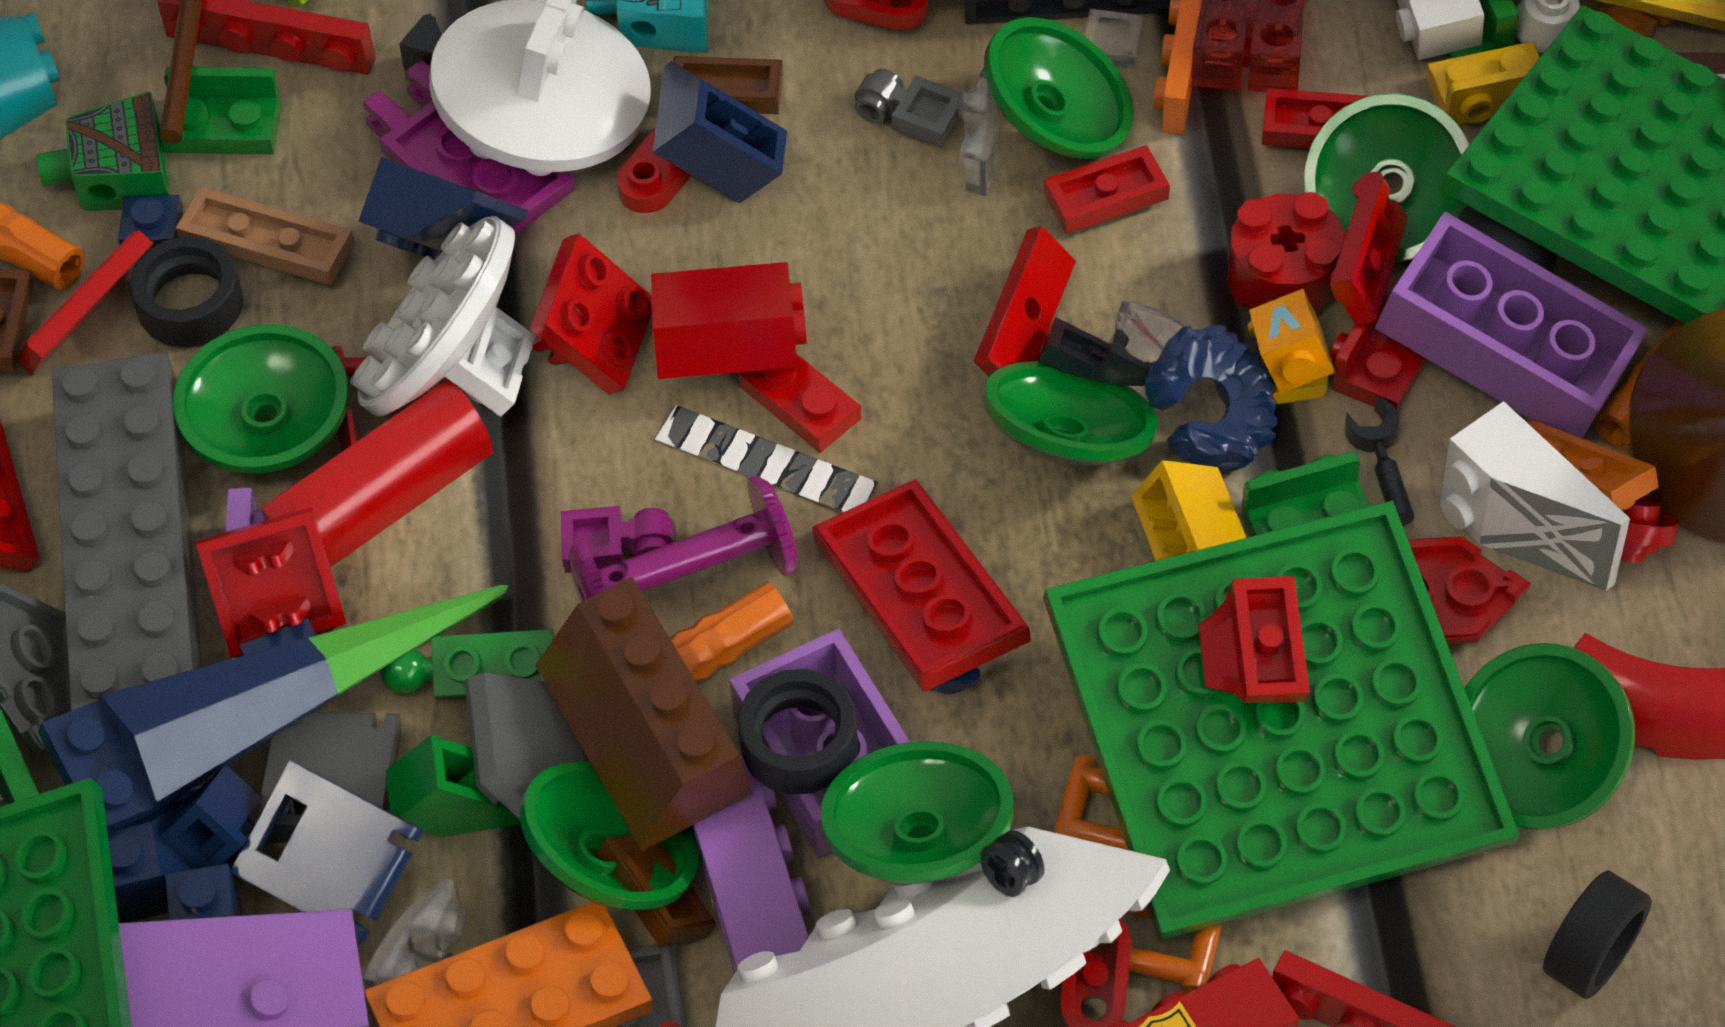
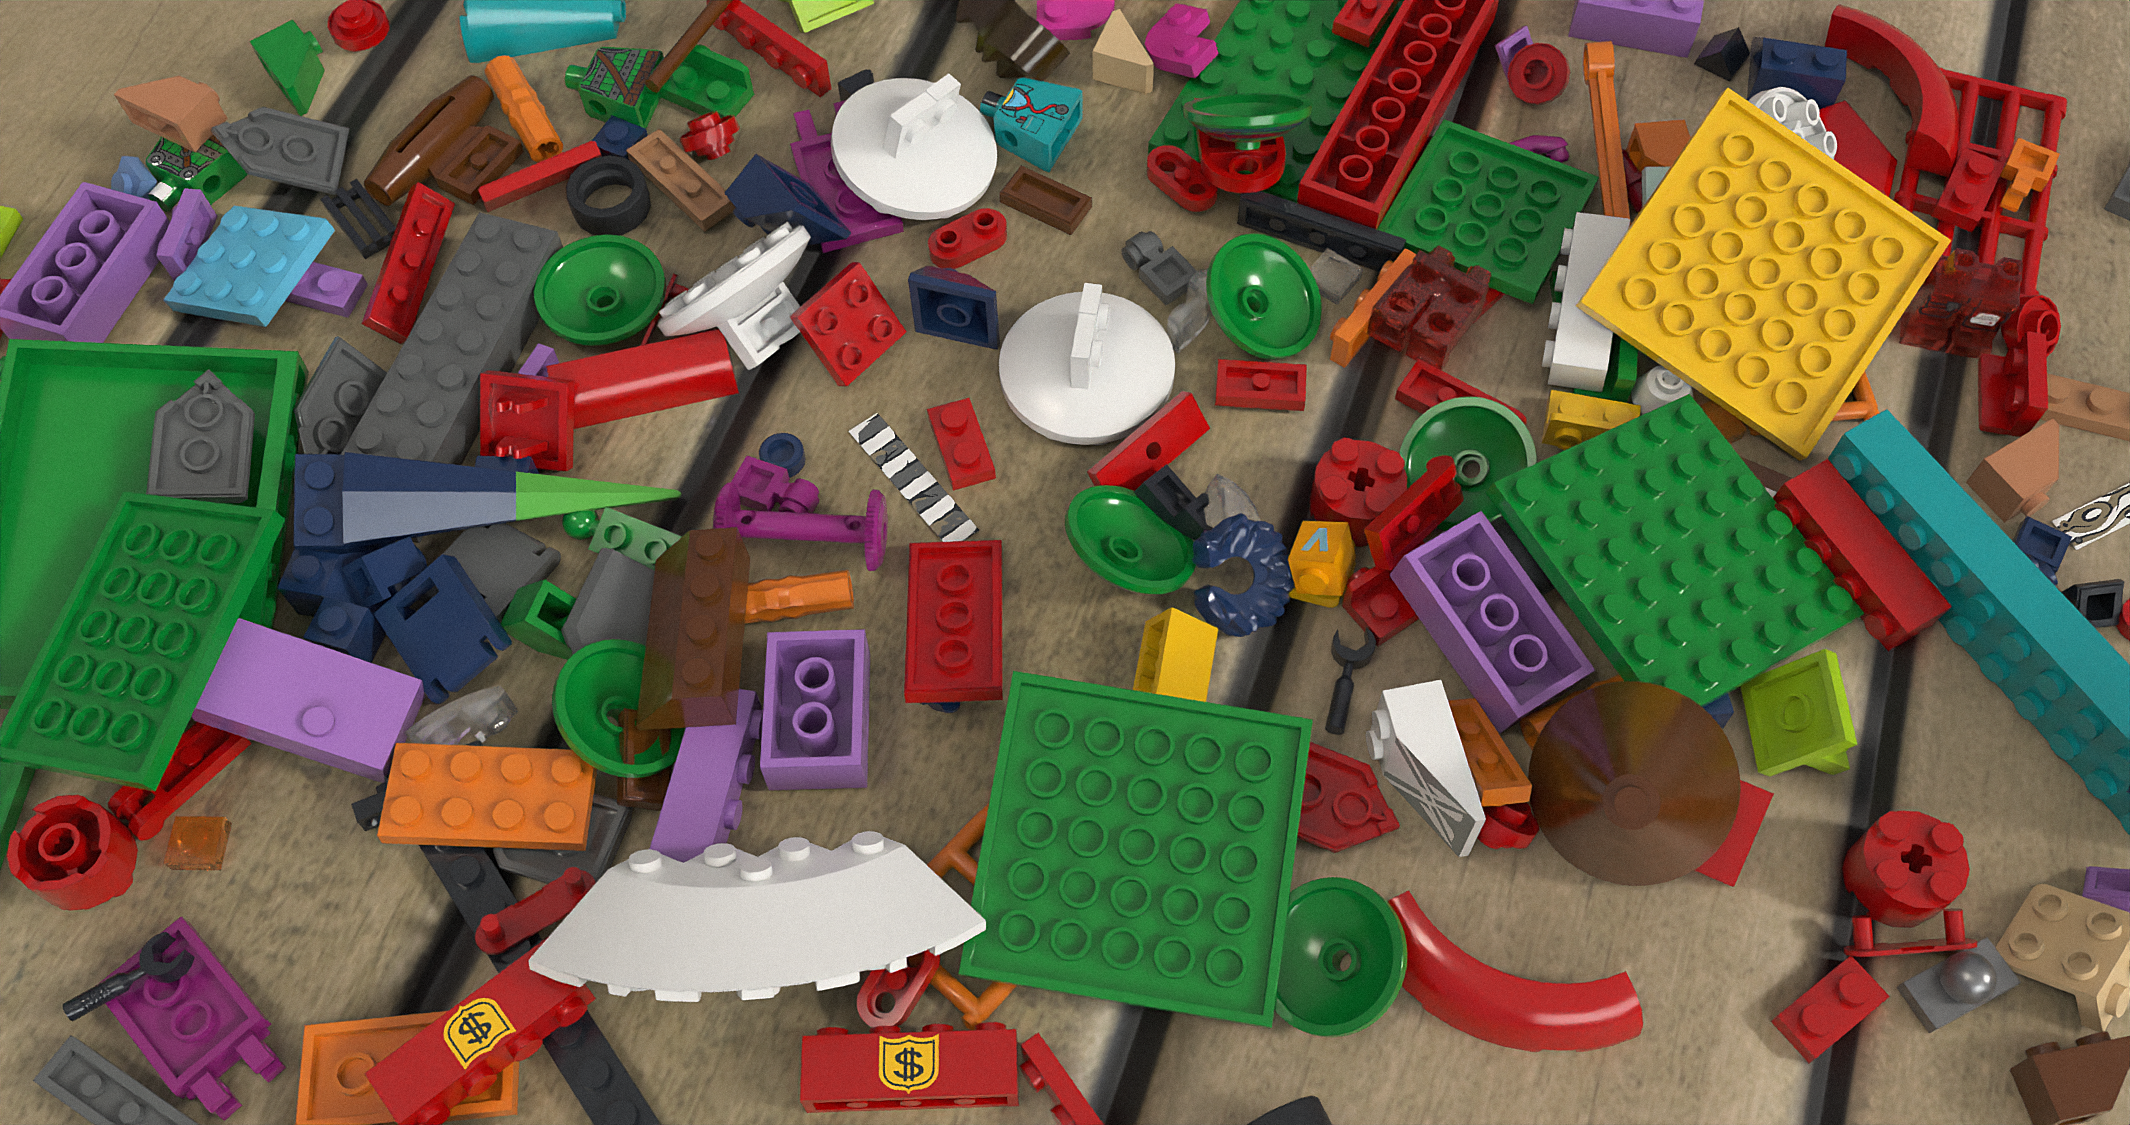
camera: 25 degrees right, 5 degrees up
(270, 168) = (710, 135): none -> red plate
(595, 489) = (784, 451): none -> dark blue tile
(709, 234) = (954, 306): none -> dark blue slope
(716, 136) = (1007, 230): dark blue slope -> none
(726, 320) = (932, 367): red brick -> none
(793, 690) = (770, 663): black tyre -> none
(896, 250) = (1086, 367): none -> white bracket
(916, 811) = (817, 781): green dish -> none
(1012, 863) = (853, 875): black bush -> none
(1256, 642) = (1142, 785): red slope -> none
(1302, 493) = (1267, 683): green bracket -> none

